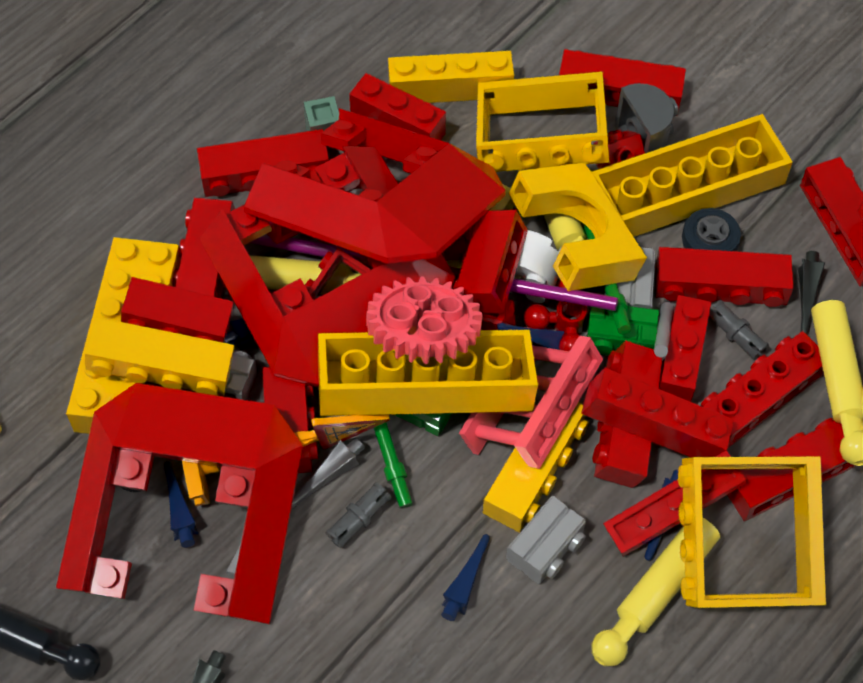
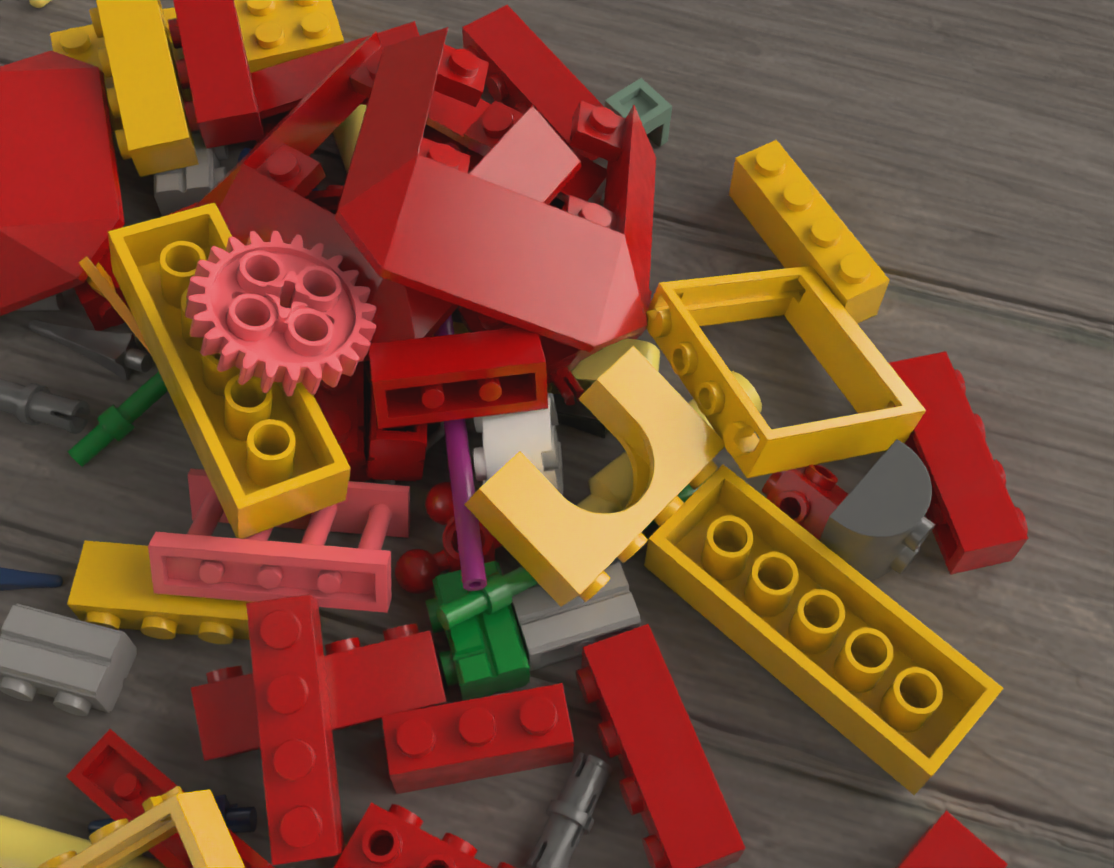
camera: 65 degrees right, 0 degrees up
(396, 107) = (703, 199): red brick -> none
(539, 337) = (405, 521): dark blue piece -> none
(664, 329) = (476, 686): light grey bar -> none
(708, 224) = (743, 687): black wheel -> none

